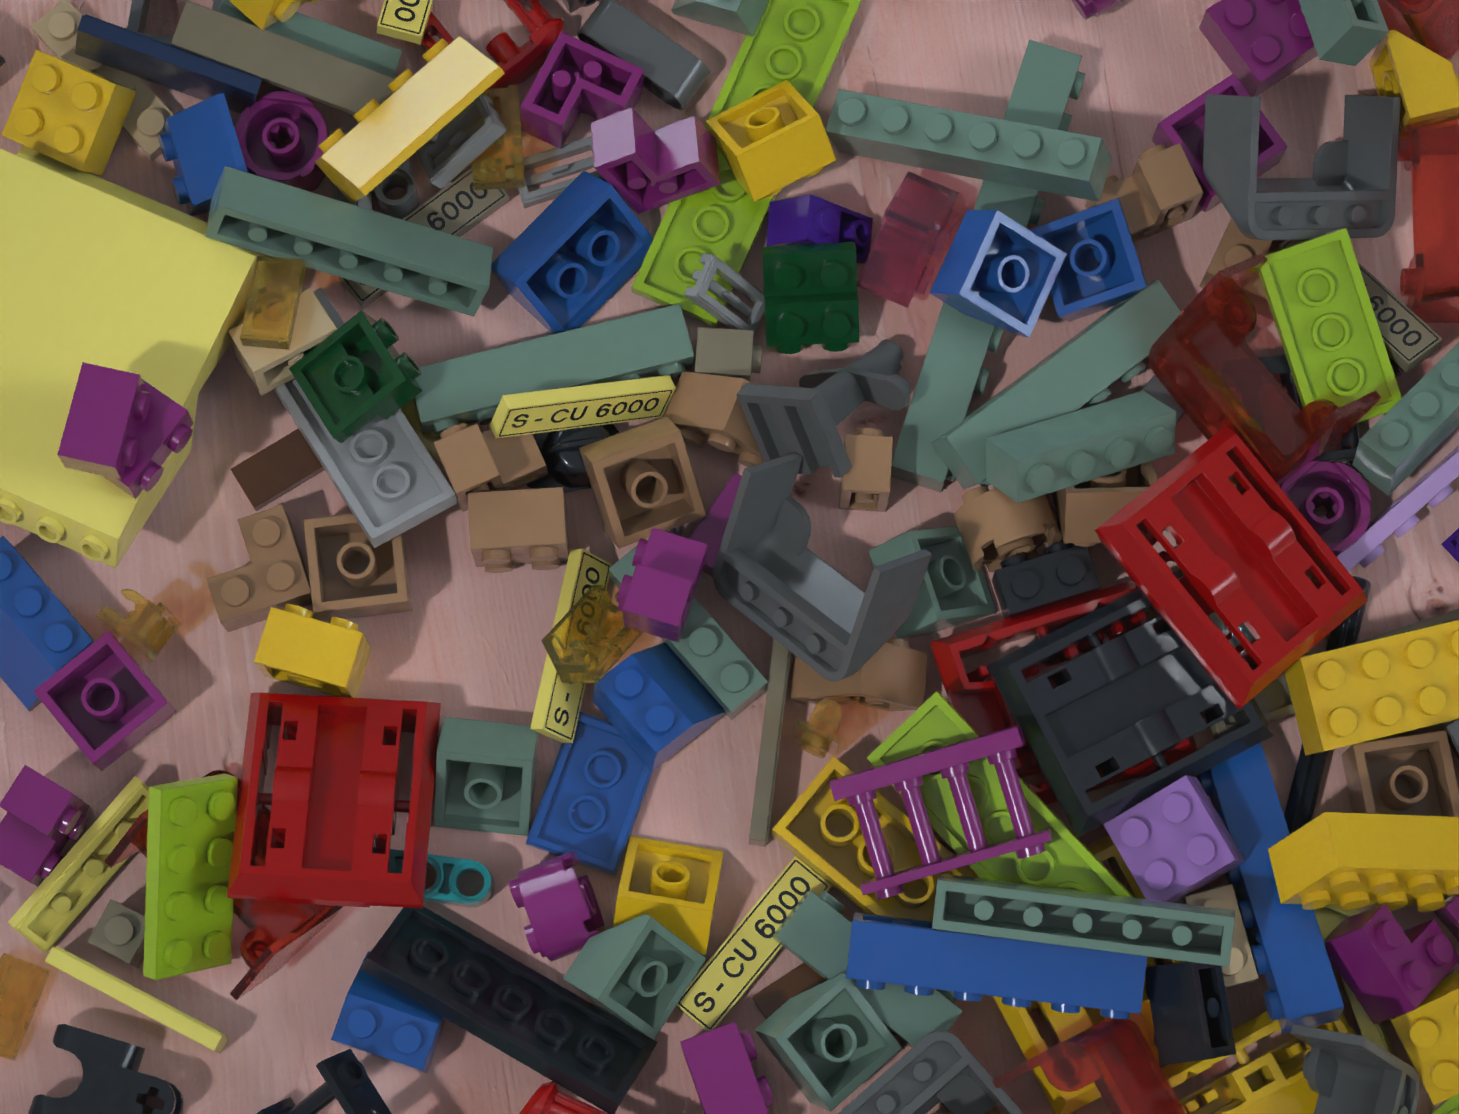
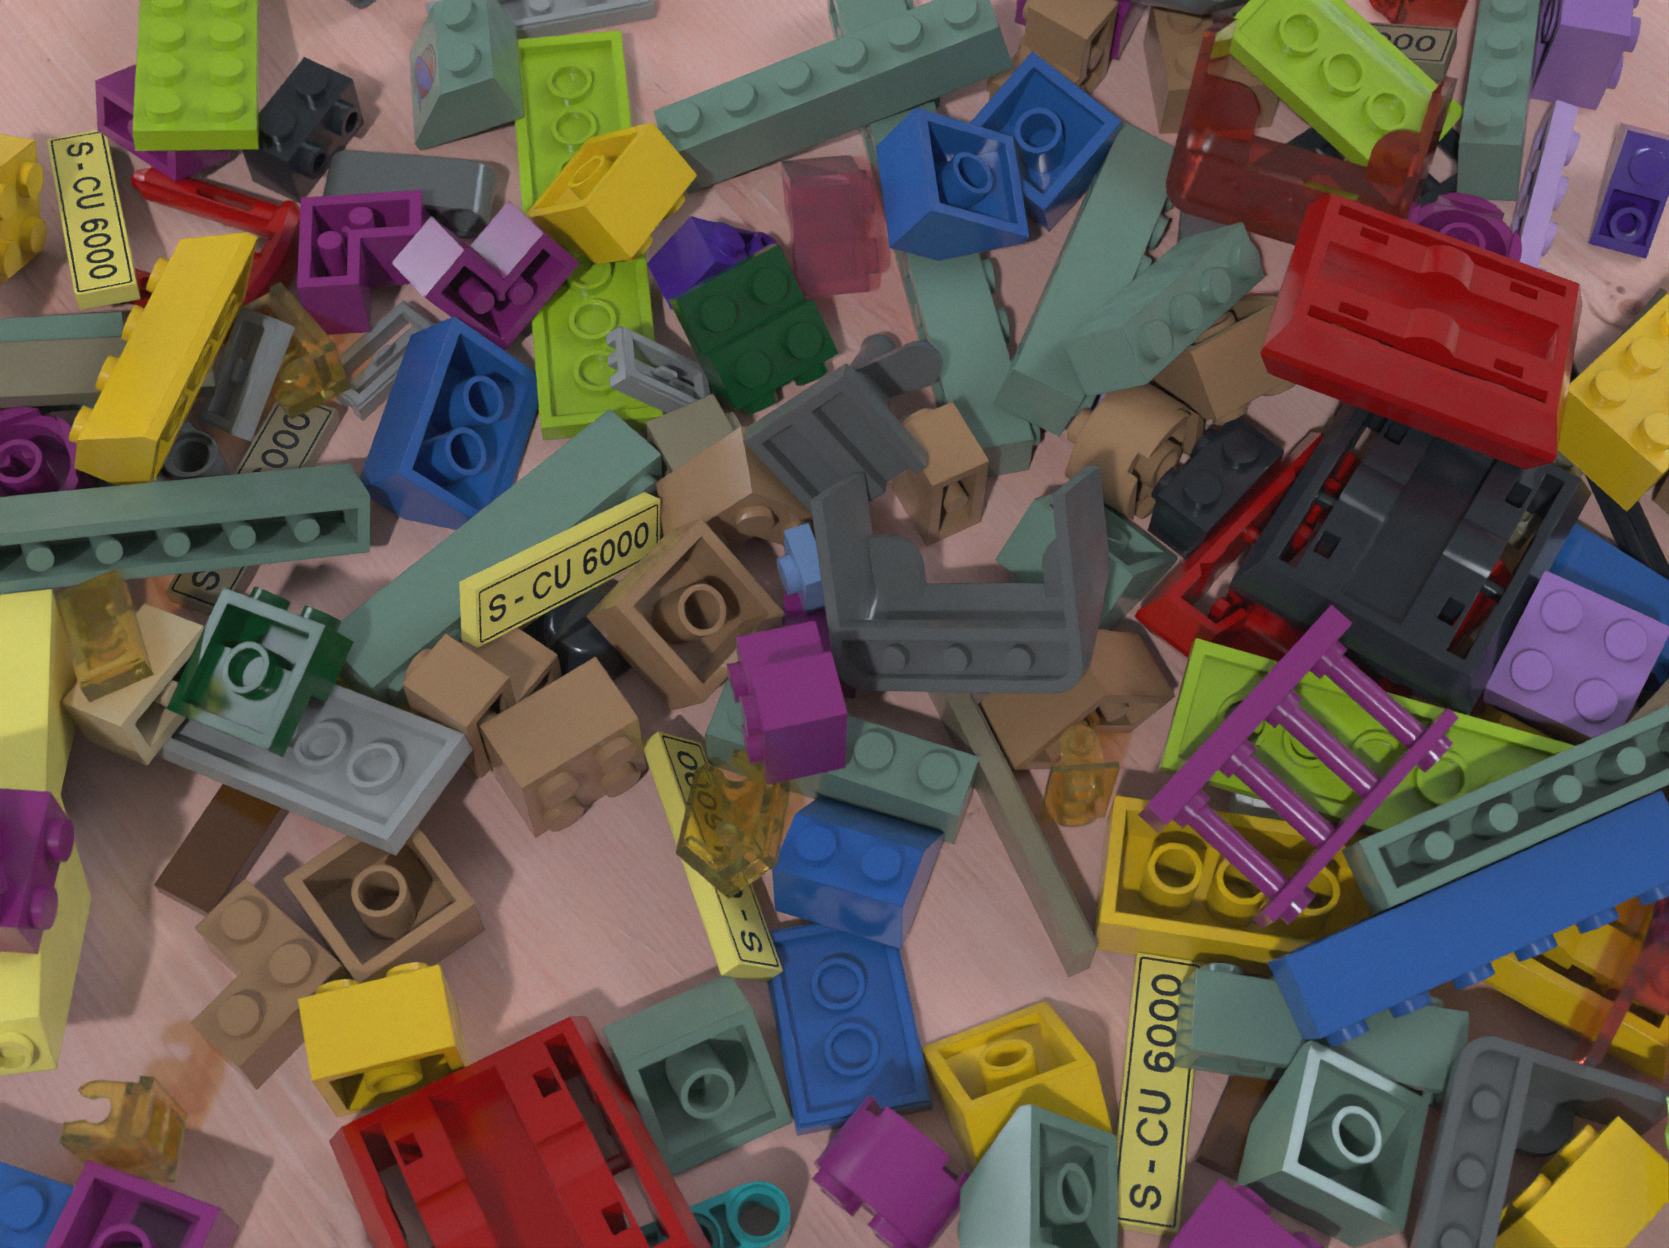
camera: 30 degrees left, 15 degrees down
(726, 493) = (800, 568): none -> medium blue plate

